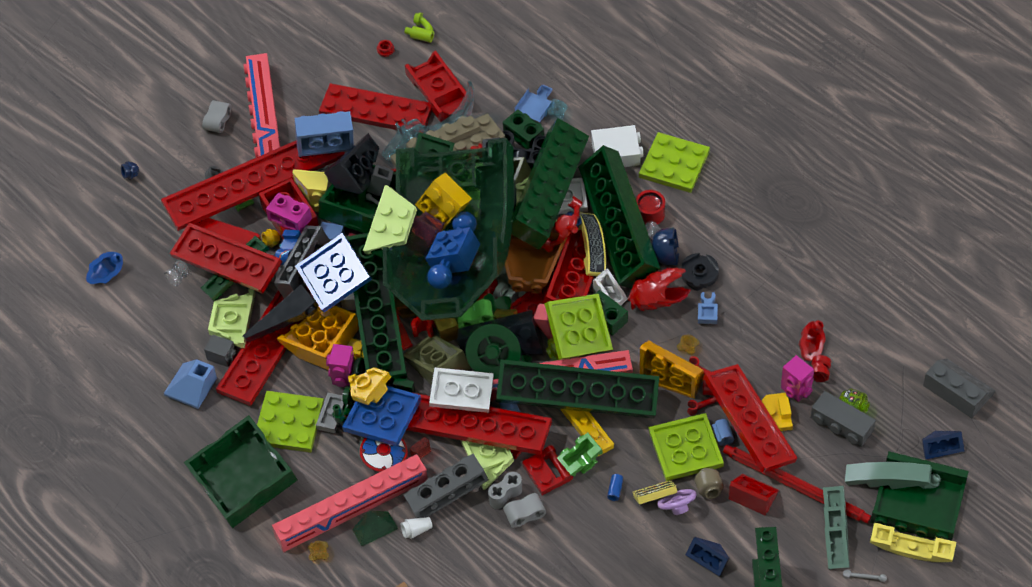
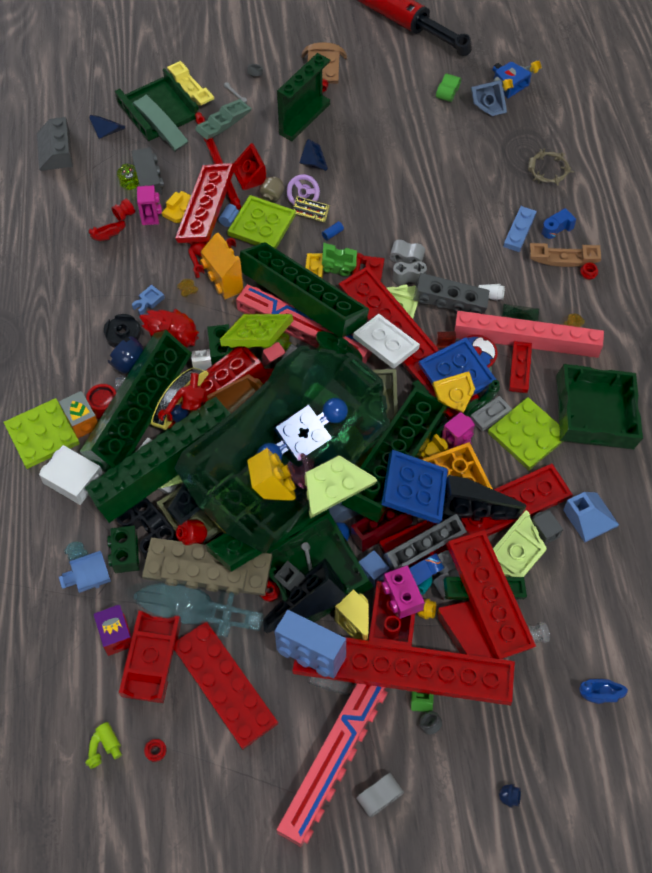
camera: 145 degrees left, 5 degrees up
(334, 468) = (520, 367): none -> red plate
(481, 80) = (113, 630): none -> dark purple piece
(657, 180) = (79, 414): none -> piece

